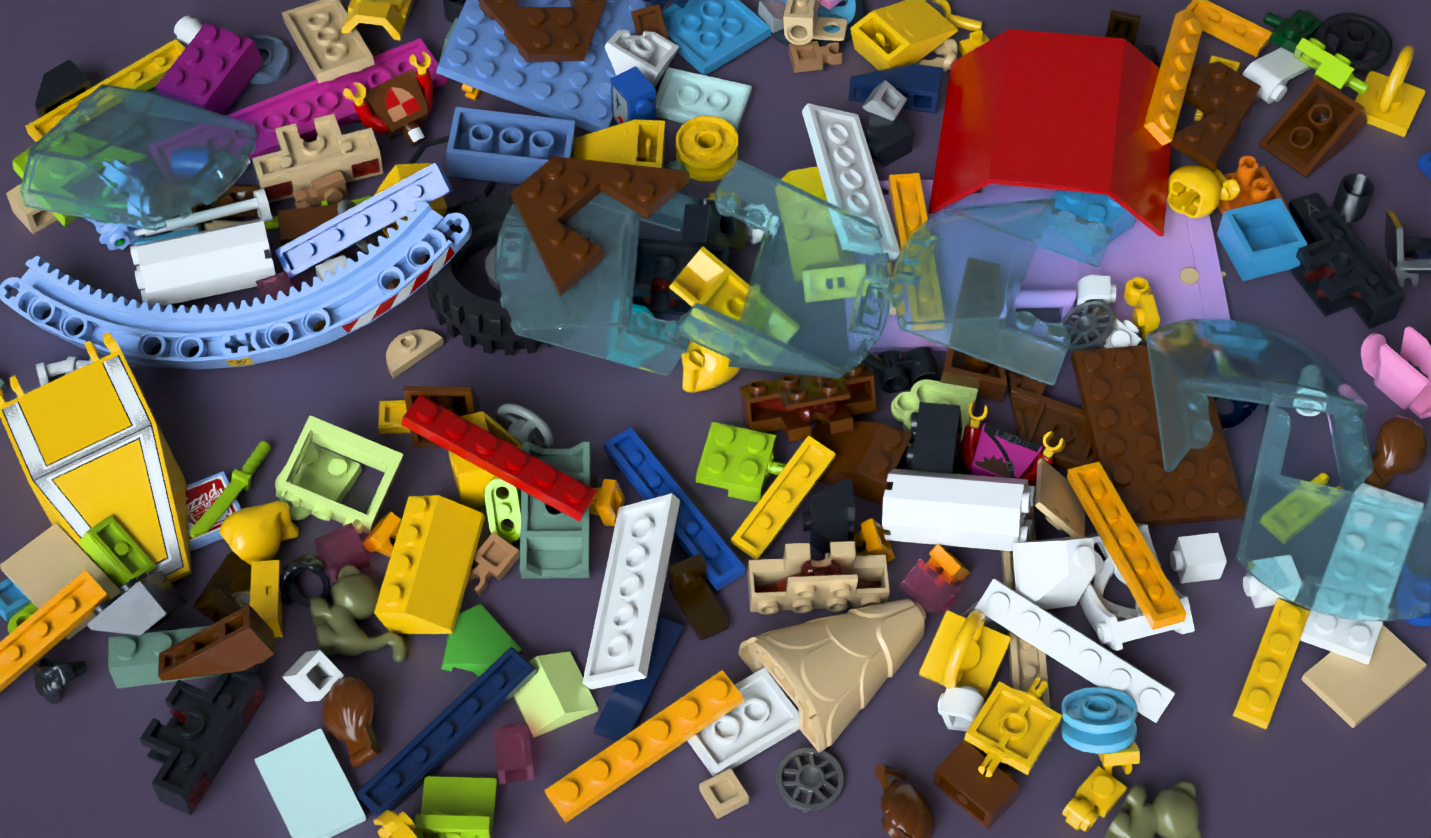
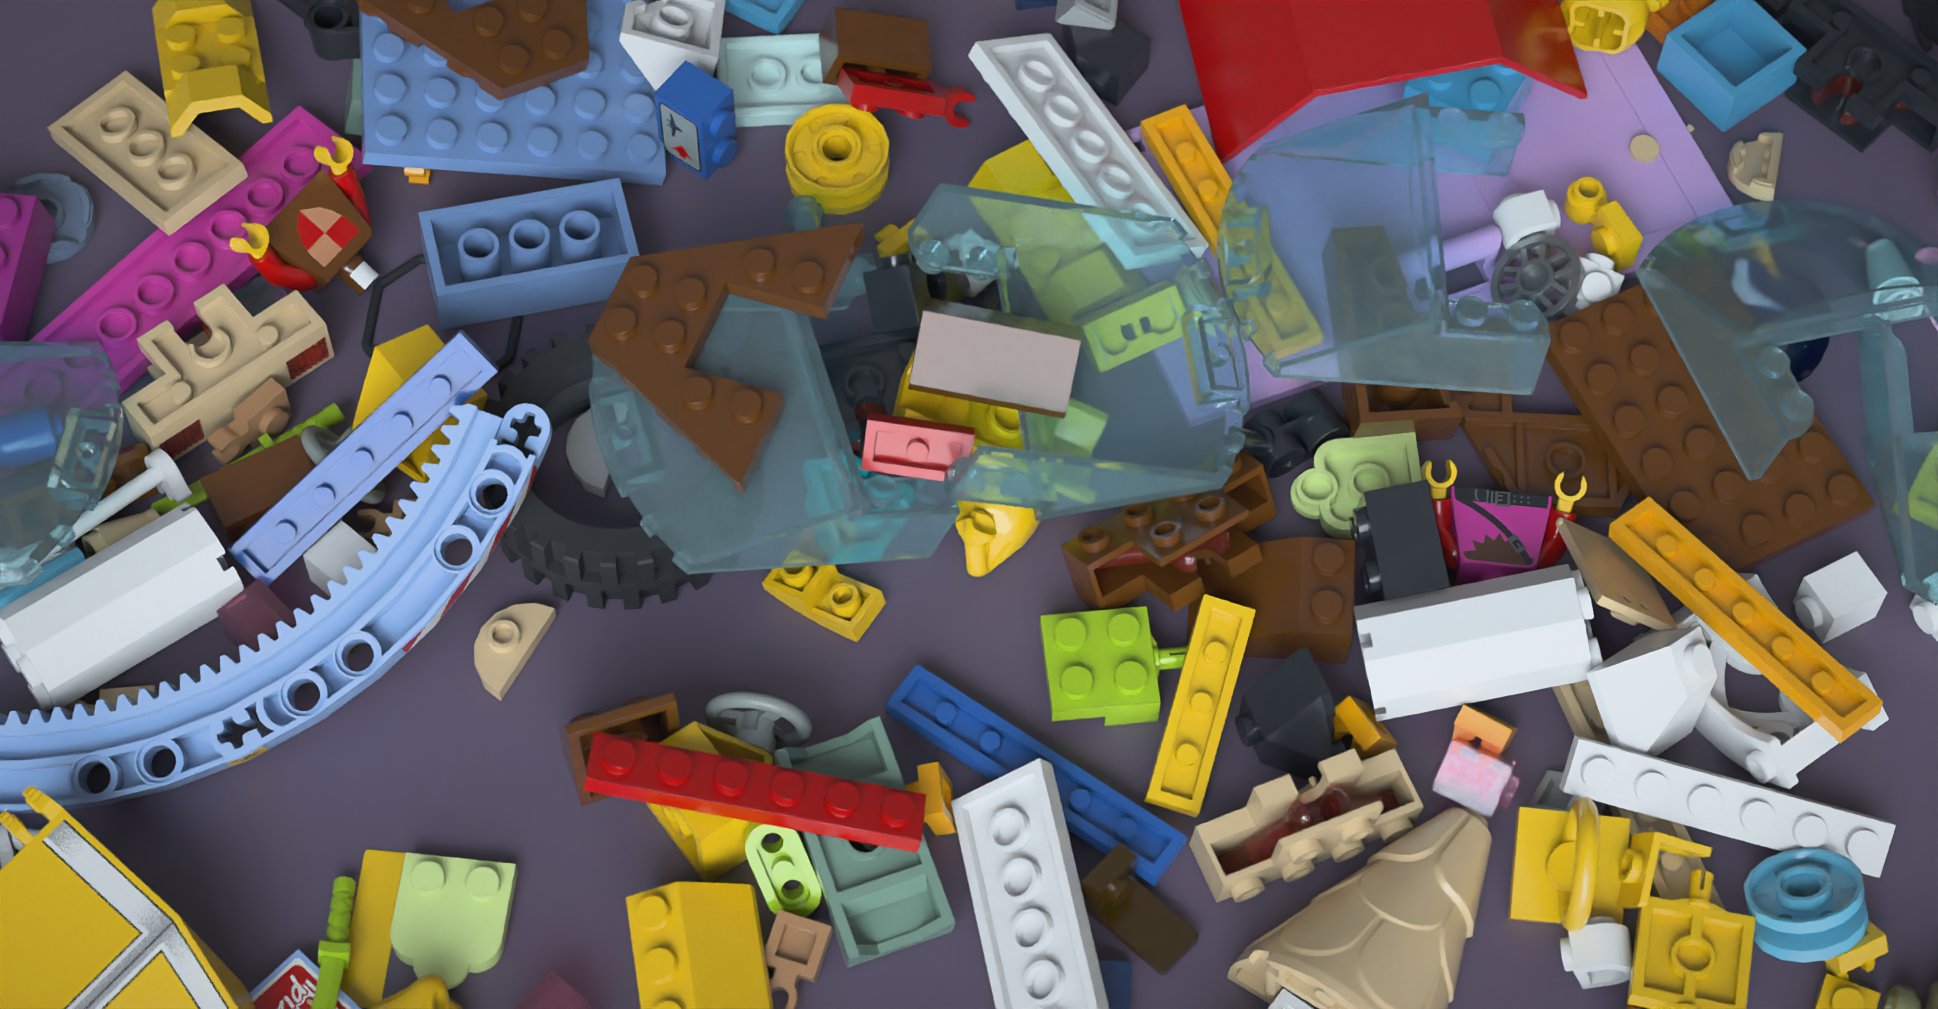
camera: 20 degrees left, 5 degrees up
(264, 481) = (371, 927): none -> yellow sticker
(348, 445) = (503, 844): yellowish green window -> none
(378, 538) = (601, 967): light orange tile -> none
(391, 417) = (534, 764): yellow tile -> none
(598, 378) = (827, 597): none -> yellow slope
(626, 143) = (712, 201): yellow slope -> none
(666, 300) = (914, 446): none -> plate
(737, 268) = (995, 358): none -> slope
(751, 96) = (873, 44): none -> reddish brown brick
(760, 124) = (906, 95): none -> red plate
(1003, 661) = (1640, 860): none -> yellow bracket
(1254, 304) = (1755, 165): none -> tan plate

